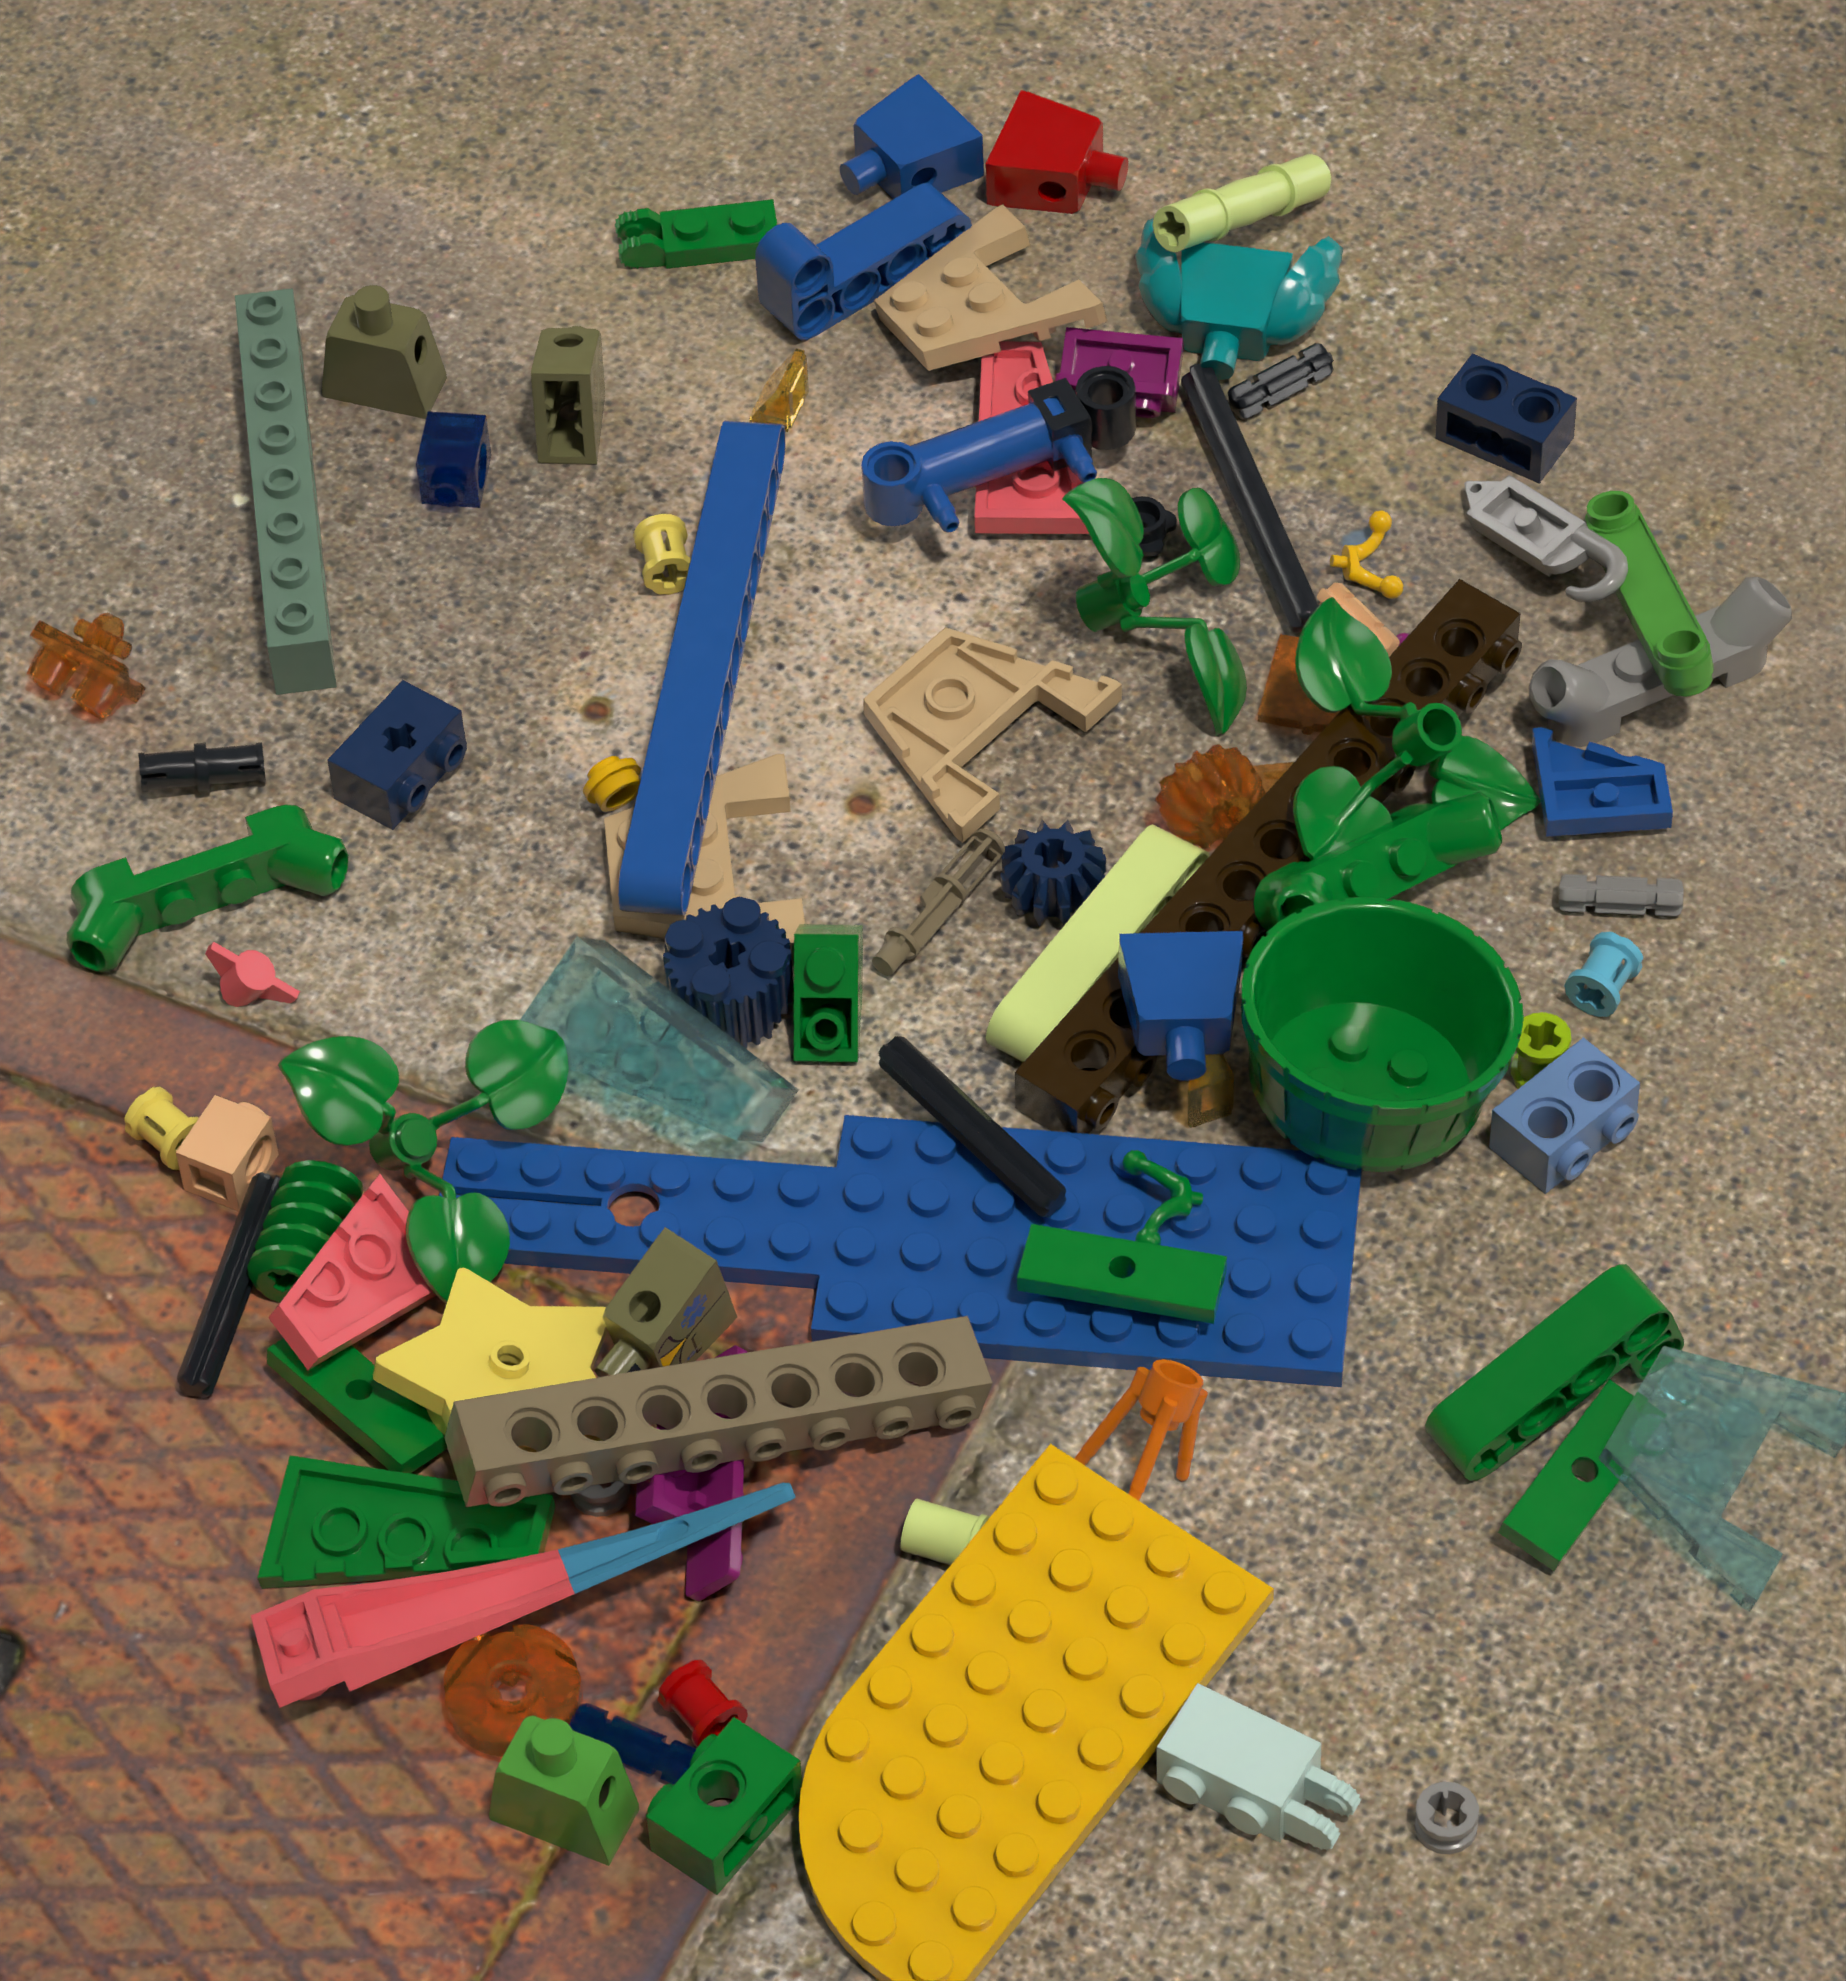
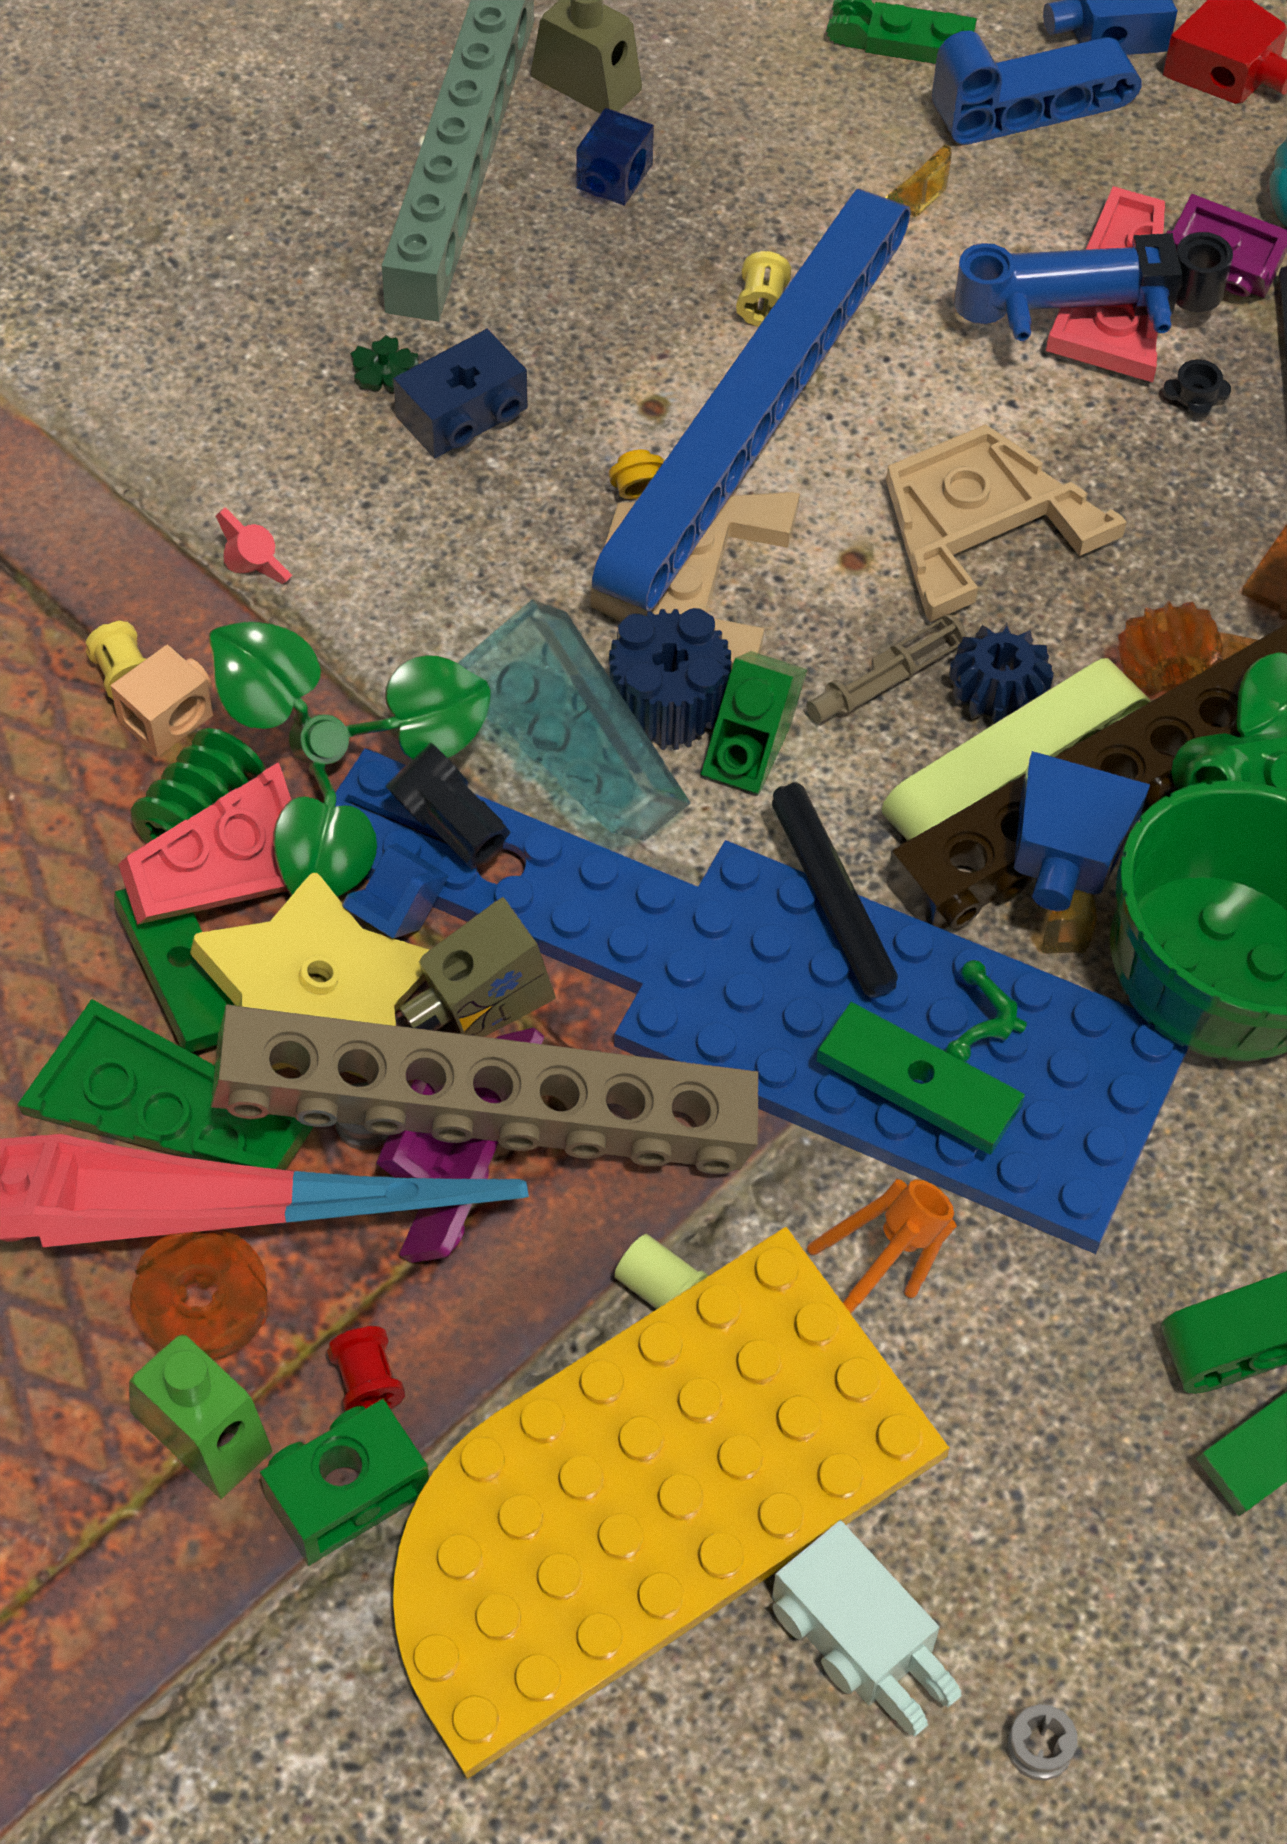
camera: 15 degrees right, 5 degrees up
(104, 678) = (241, 257): clear orange hips -> none
(202, 767) = (291, 354): black pin -> none
(227, 1293) = (104, 834): black axle -> none
(277, 853) = (169, 453): green plate -> none
(300, 749) = (381, 363): none -> dark green plant
(547, 1261) = (398, 893): none -> blue panel
(552, 1155) = (440, 797): none -> black piece
(564, 372) = (736, 109): olive torso -> none
(635, 1743) = (286, 1384): clear blue axle -> none
(961, 310) = (1106, 150): tan wing -> none
(1123, 592) = (1153, 441): green plant -> none

